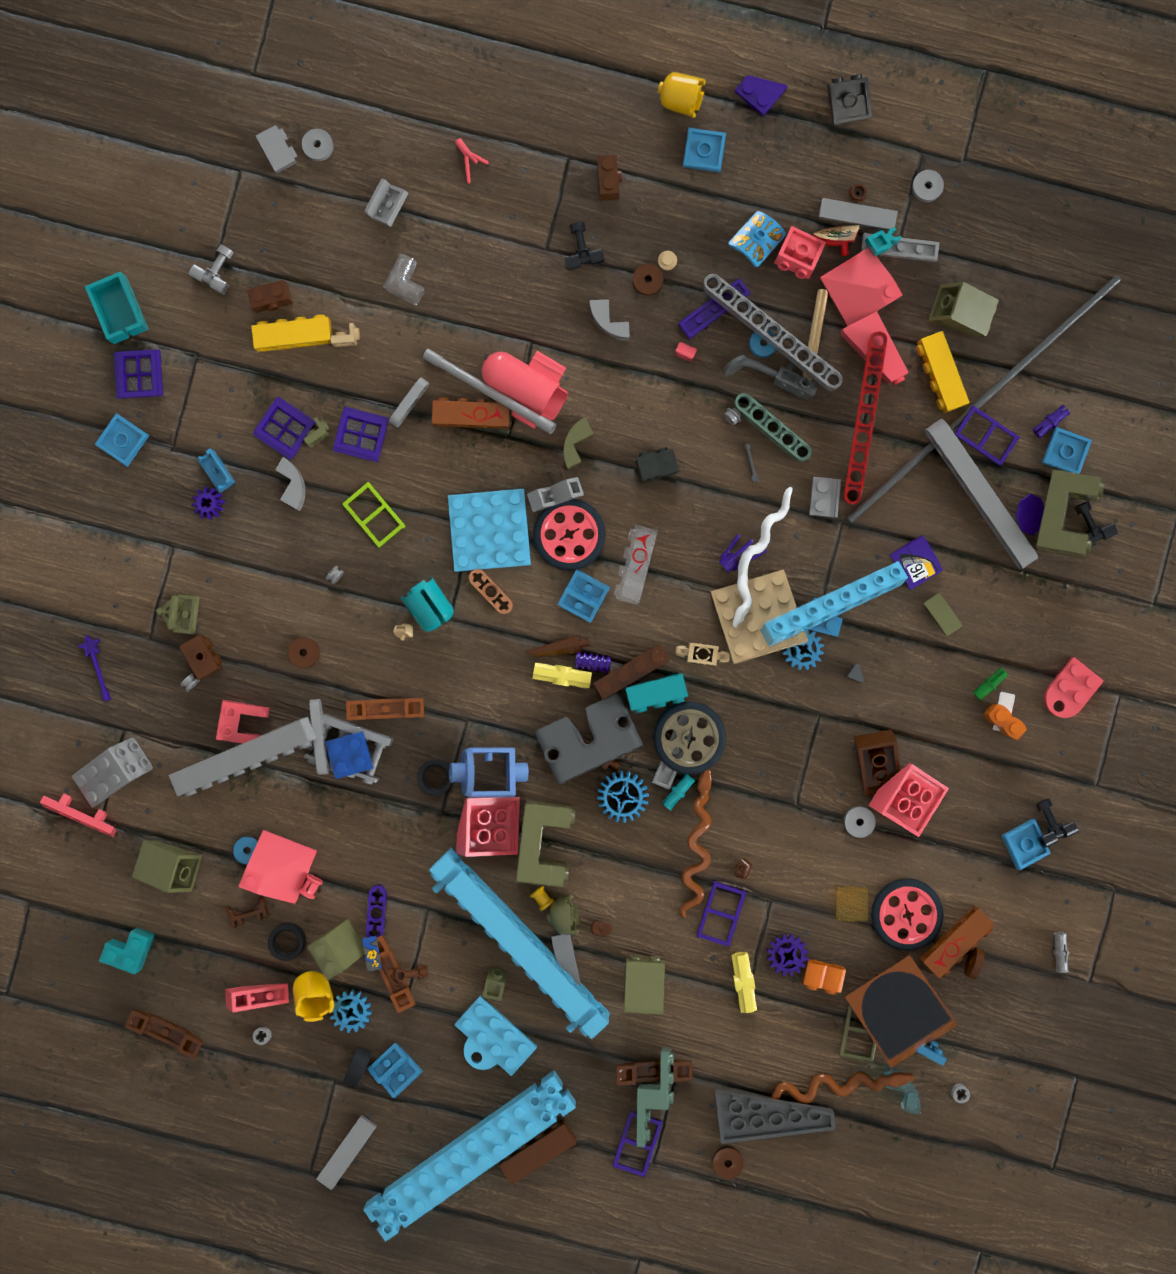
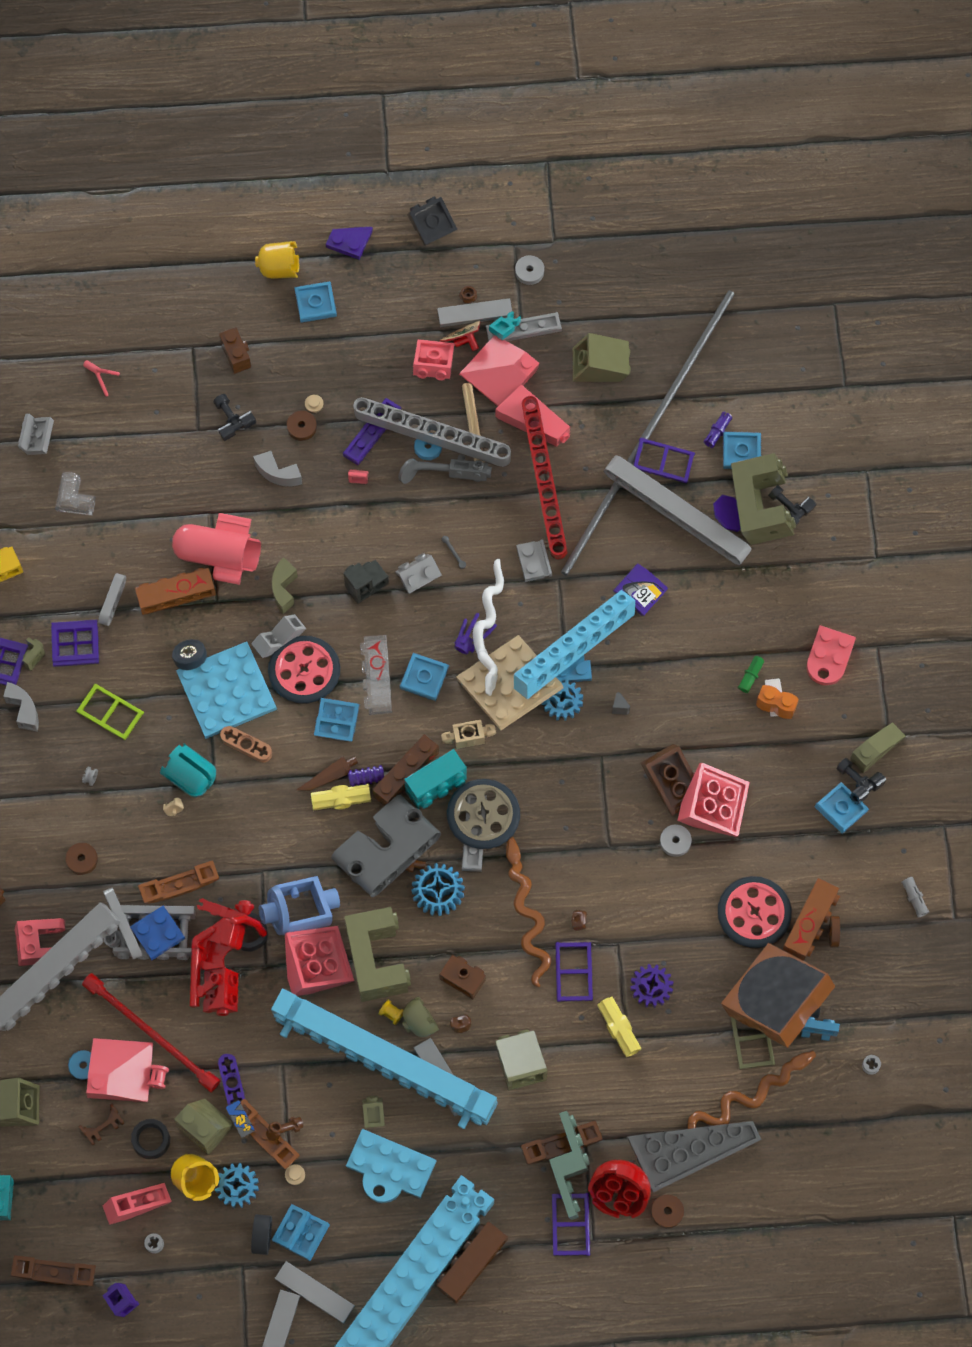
camera: 15 degrees left, 20 degrees down
(215, 1078) = (118, 1306): none -> dark purple brick
(344, 339) = (34, 563): tan bracket -> none
(354, 902) = (96, 986): none -> red hose
(390, 1127) = (314, 1292): none -> light grey tile
(392, 789) = (209, 953): none -> red piece
(406, 1018) = (295, 1174): none -> tan plate
(464, 476) = (188, 662): none -> black bush
(538, 420) = (242, 571): light grey piece -> none
(617, 887) = (462, 976): none -> reddish brown brick
(678, 792) = (490, 868): teal pin -> none
(680, 581) = (424, 676): none -> dark azure plate
(698, 1130) = (624, 1179): none -> red cylinder
(709, 472) = (418, 572): none -> light grey bracket
(732, 416) = (421, 516): light grey plate -> none
(758, 238) = (390, 357): dark azure shield -> none
(776, 437) = (456, 507): sand green beam -> none
(824, 976) = (694, 995): orange brick -> none
(851, 903) = (697, 920): clear yellow piece -> none
(910, 1099) = (813, 1071): clear light blue brick -> none
(942, 372) = (602, 419): yellow brick -> none
(942, 614) = (683, 627): olive slope -> none
(1081, 796) = (876, 747): none -> olive slope

